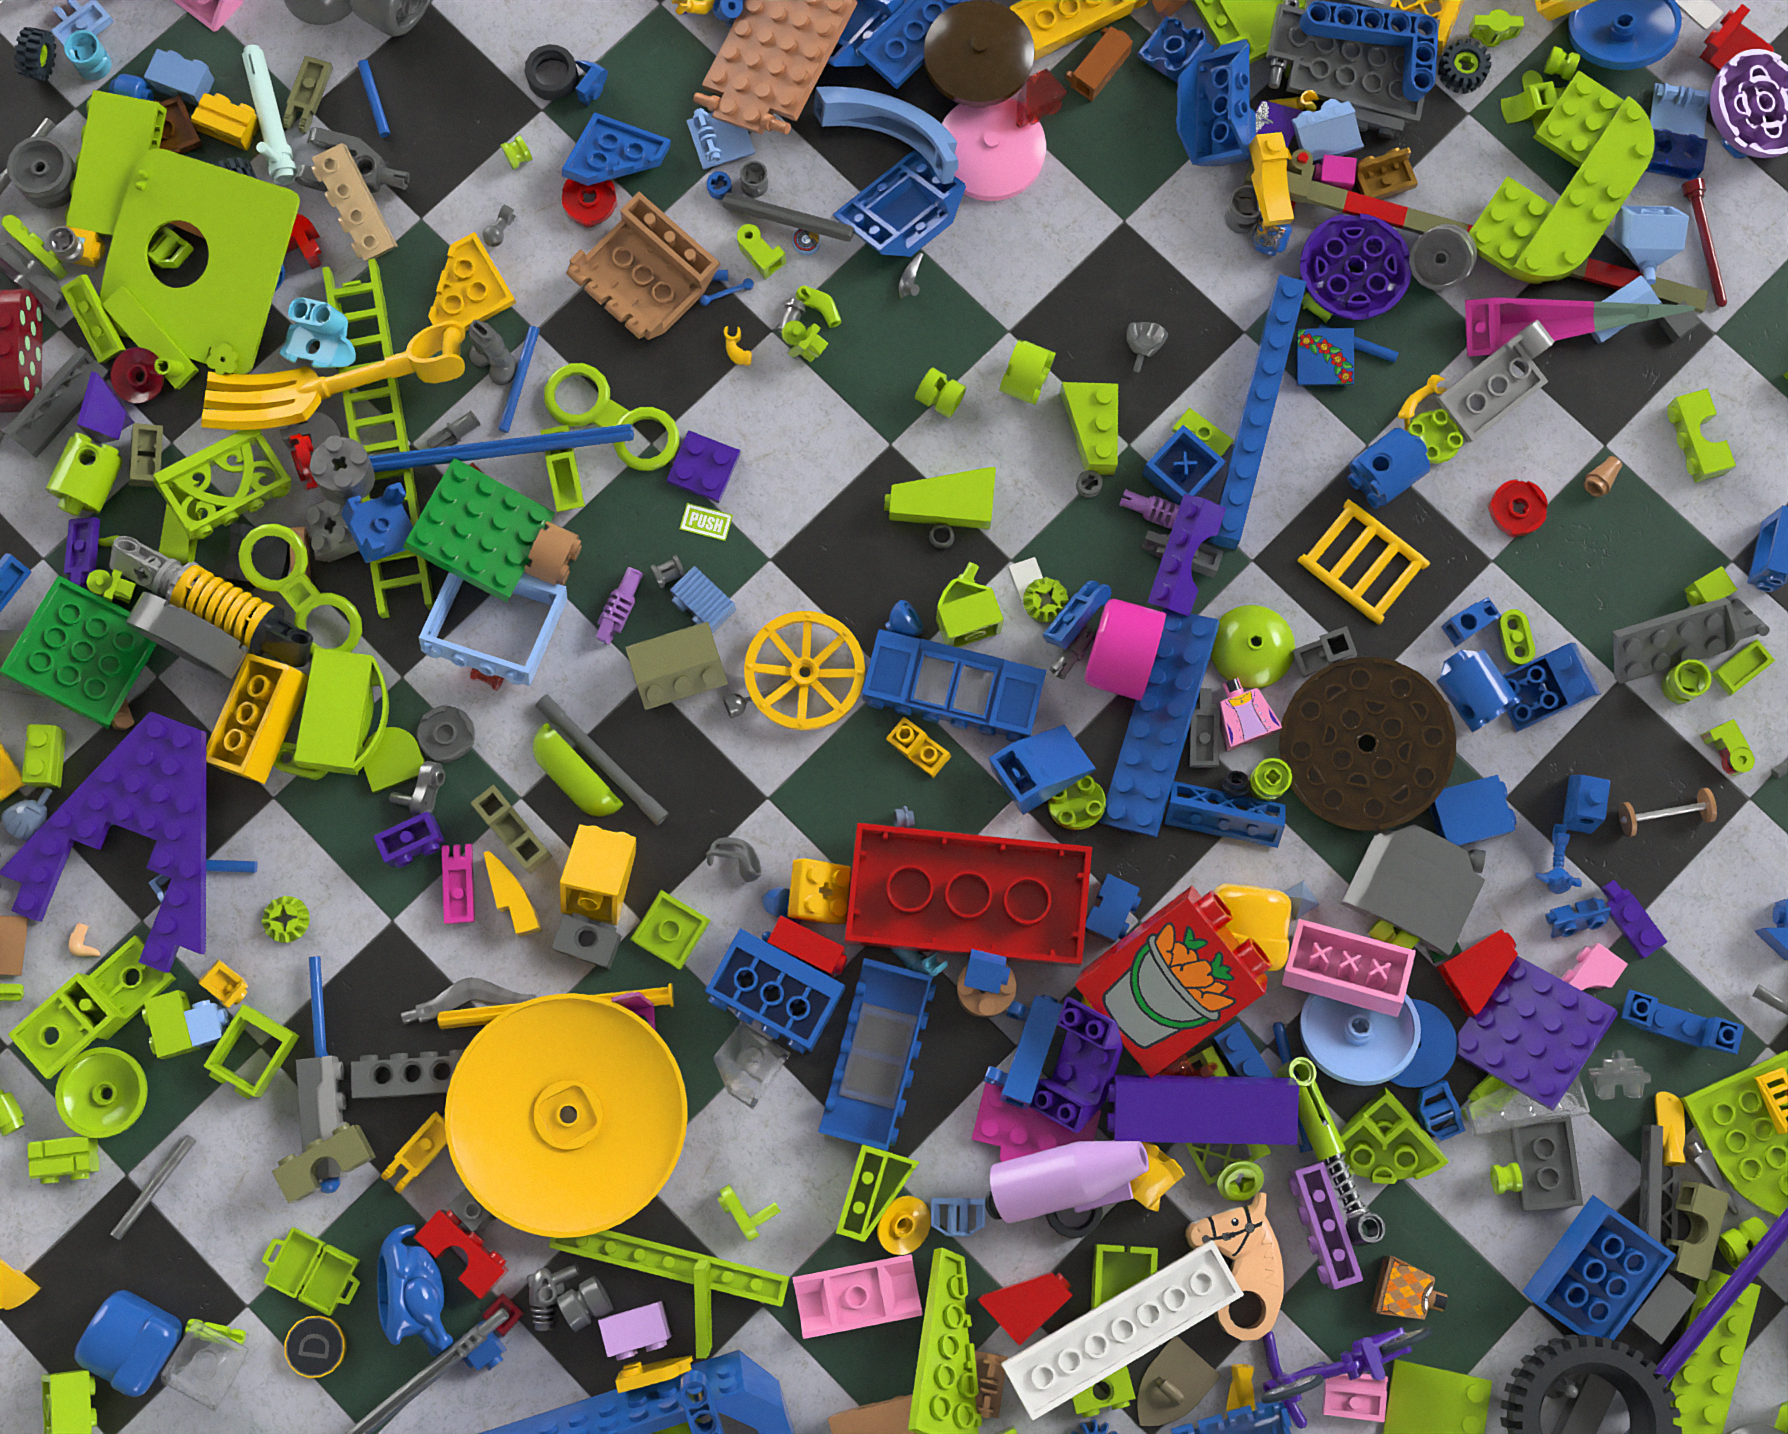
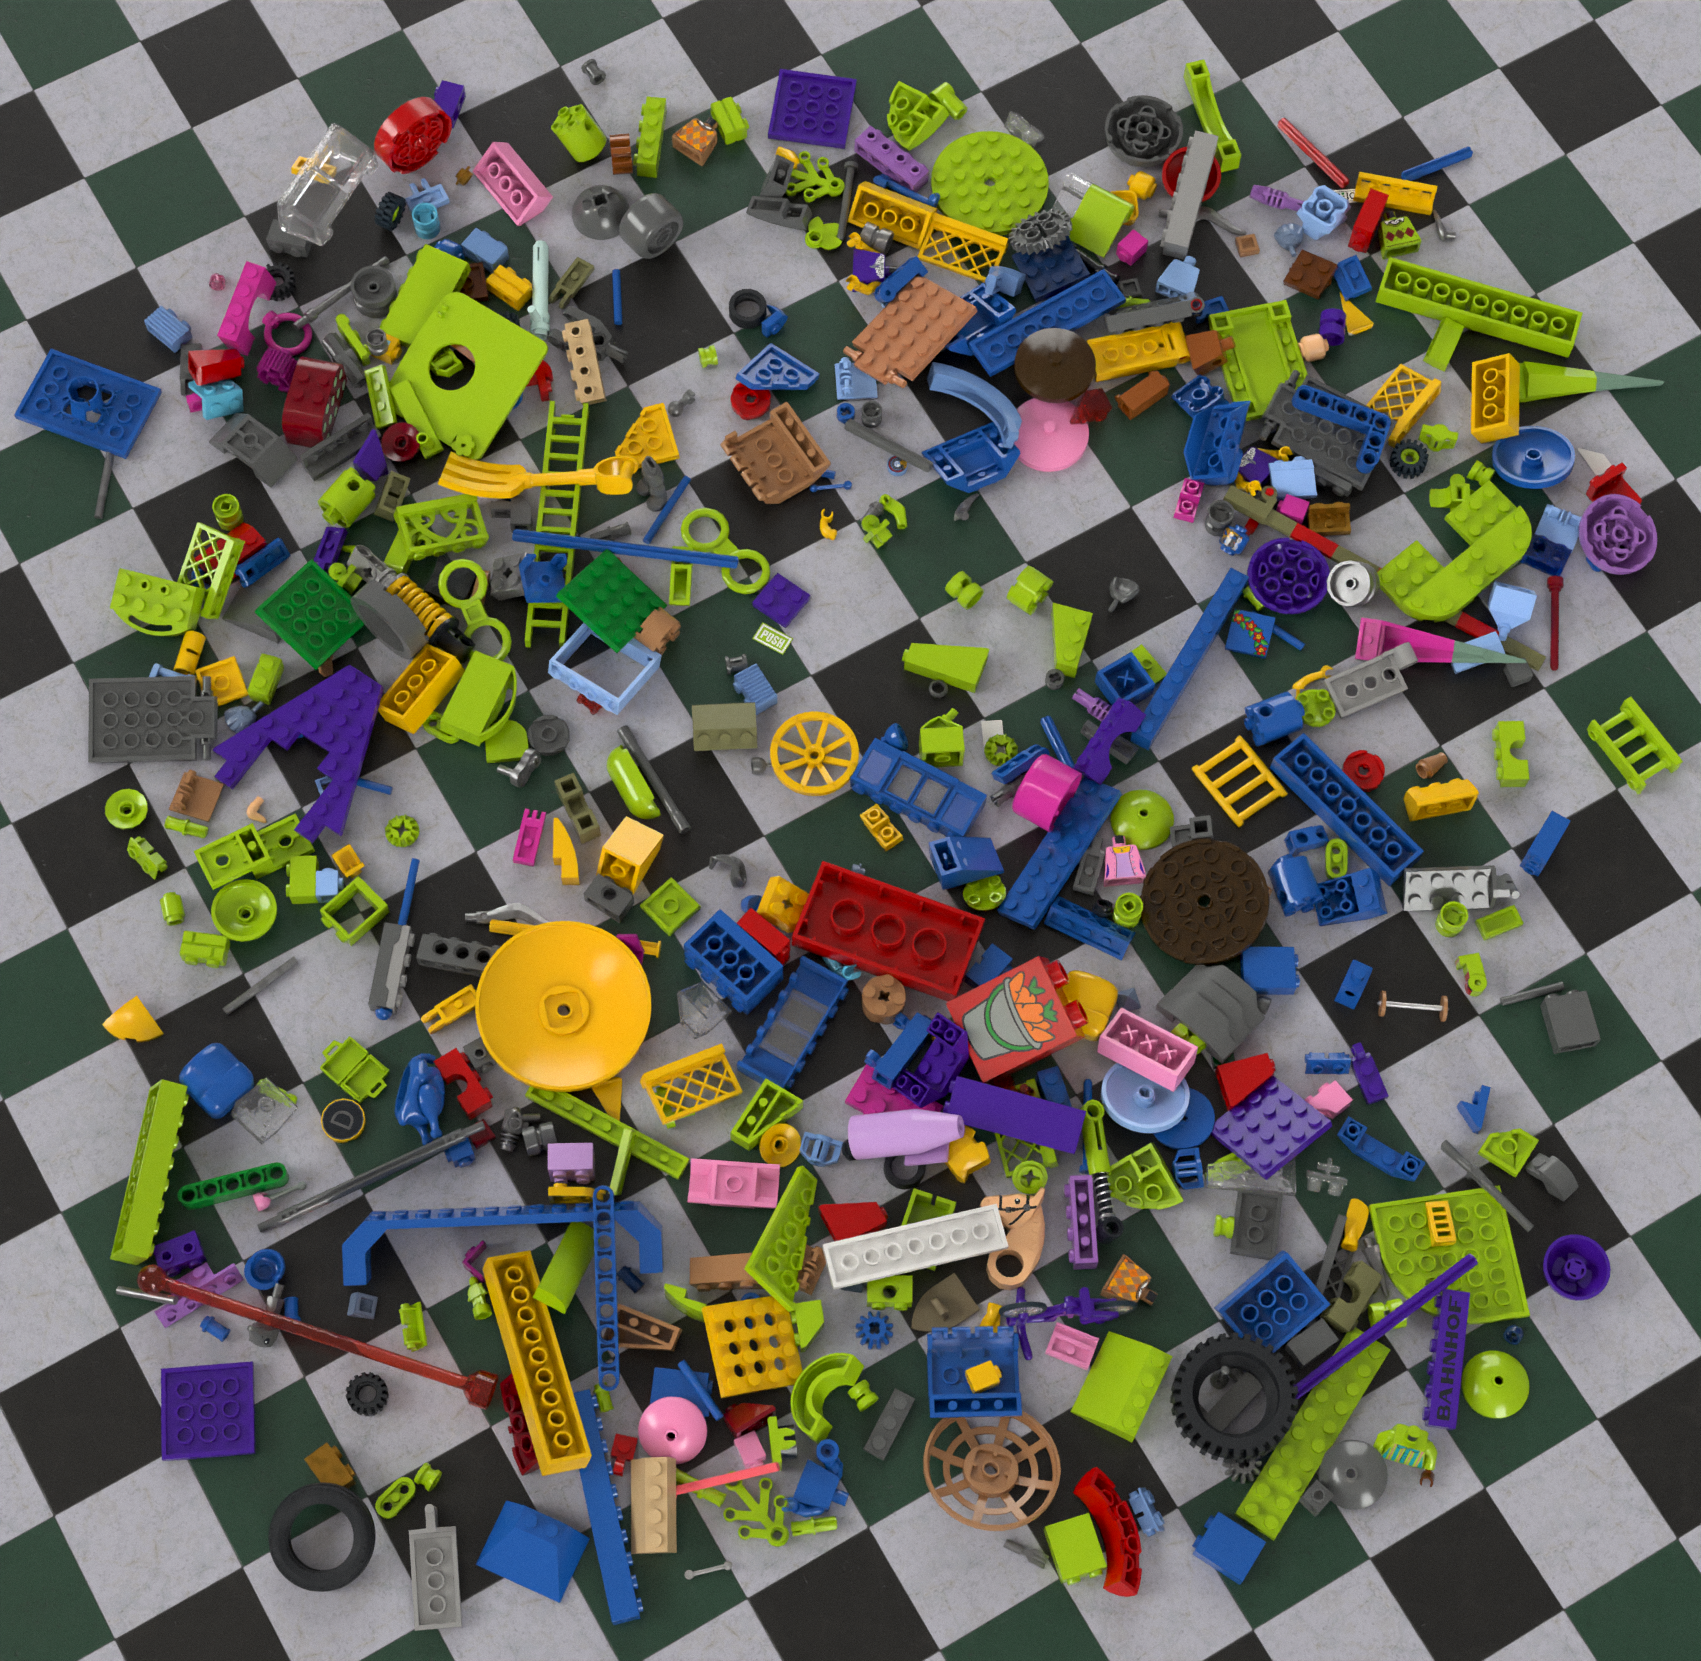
camera: 15 degrees right, 10 degrees down
(299, 1174) = (366, 994): olive arch -> none
(302, 459) = (500, 526): red plate -> none
(319, 323) = (535, 435): medium azure piece -> none
(342, 469) = (528, 535): flat silver brick -> none
(409, 840) = (504, 797): dark purple brick -> none
(618, 606) = (694, 679): medium lavender hinge -> none
(662, 1217) = (610, 1096): none -> yellow sticker
(749, 1155) = (682, 1067): none -> yellow fence
(759, 252) = (860, 464): lime leg -> none
(986, 971) = (885, 981): blue brick -> none
(1116, 572) = (1056, 741): none -> blue axle
(1197, 193) = (1188, 500): none -> dark pink slope
(1270, 178) = (1241, 498): yellow slope -> none
(1514, 567) = (1346, 809): none -> blue brick
(1558, 879) = (1319, 1031): blue piece -> none
(1628, 520) = (1440, 799): none -> yellow slope
(1710, 588) = (1489, 856): lime brick -> none

